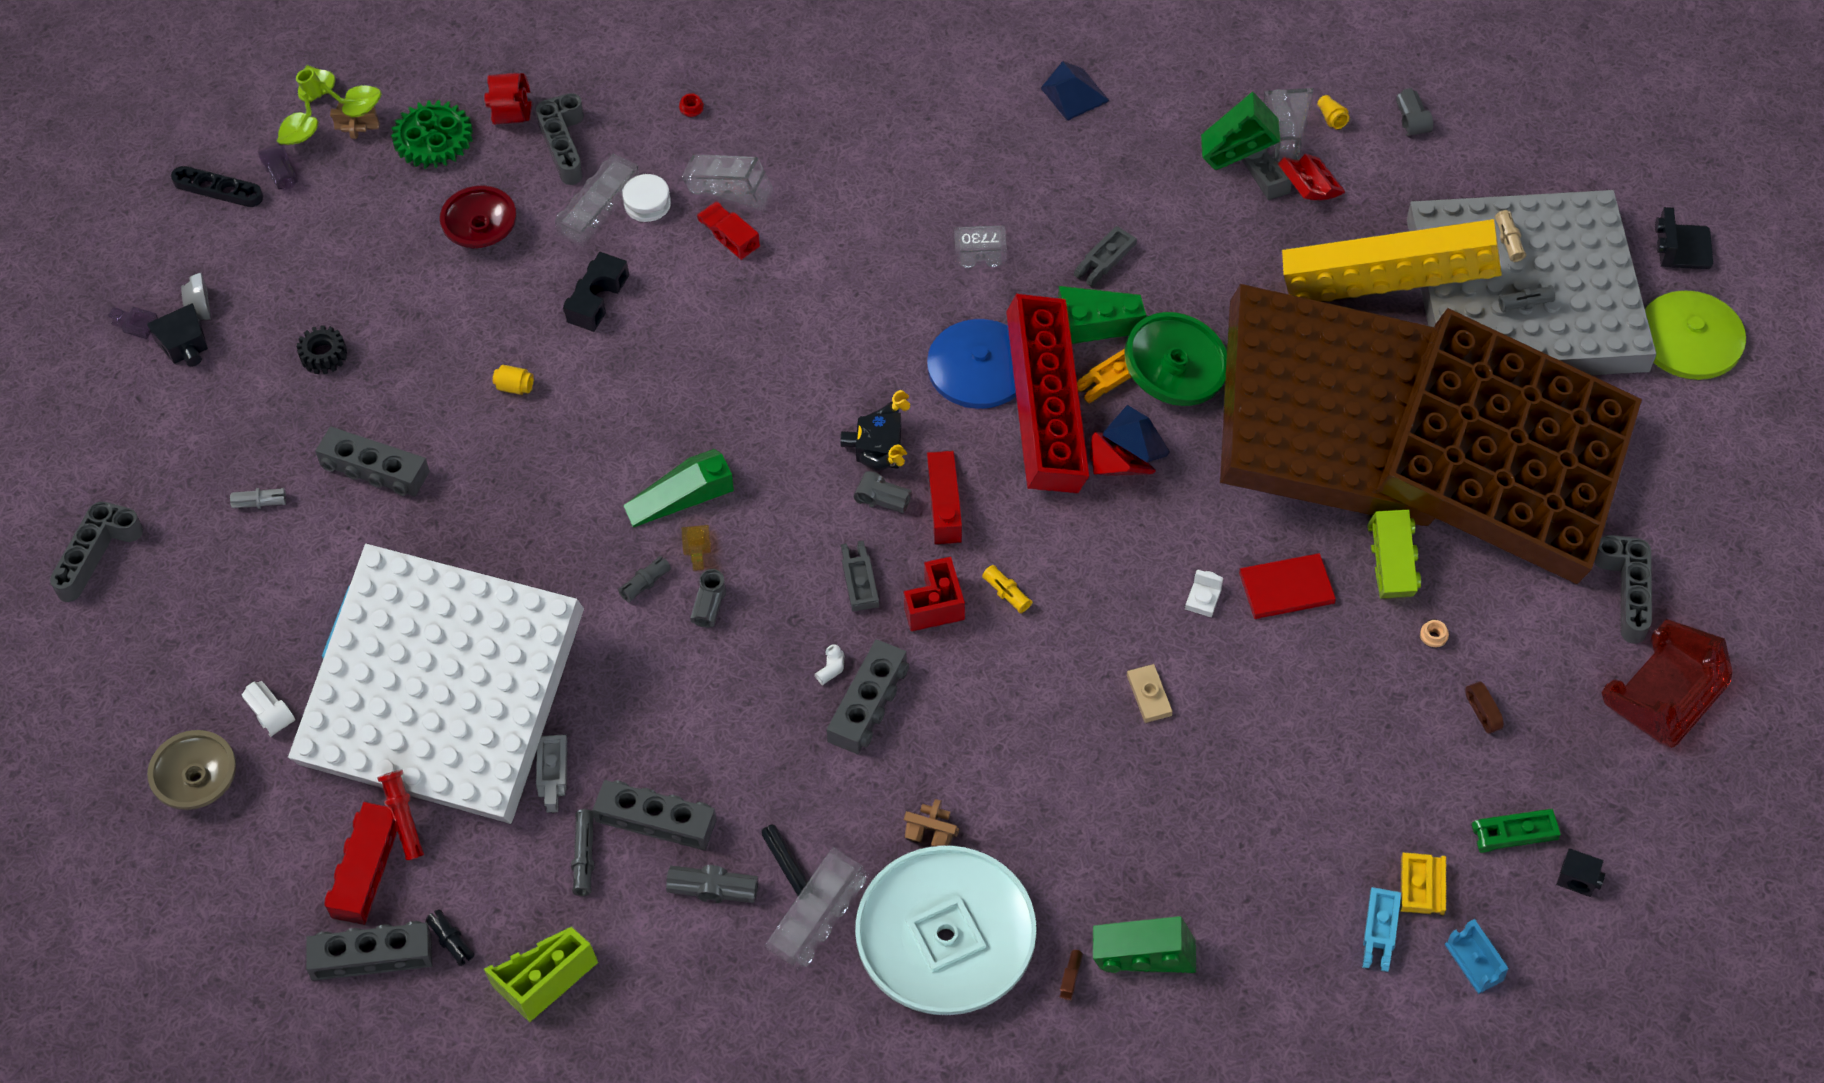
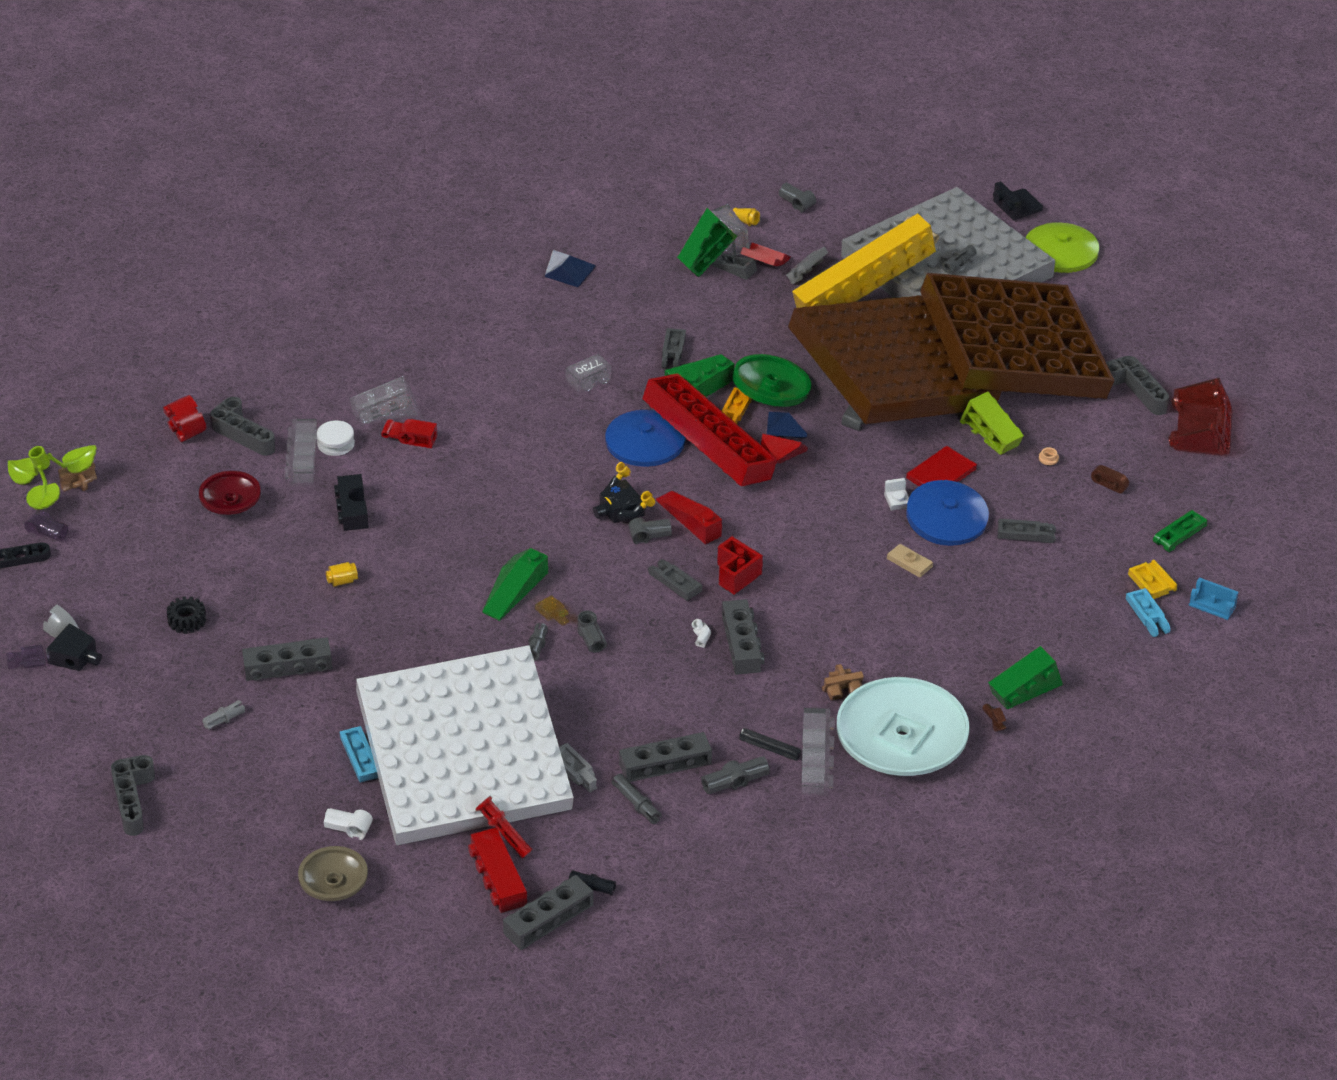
camera: 35 degrees left, 15 degrees down
(432, 134) = (144, 463): green gear -> none
(544, 973) = (674, 867): lime wedge -> none
(691, 105) = (315, 375): red plate -> none
(1007, 589) = (774, 545): yellow pin -> none
(1244, 650) = (947, 512): none -> blue dish
(1320, 726) = (1026, 530): none -> dark grey hinge
(1347, 215) = (804, 267): none -> light grey hinge
(1581, 873) = (1233, 533): black brick -> none

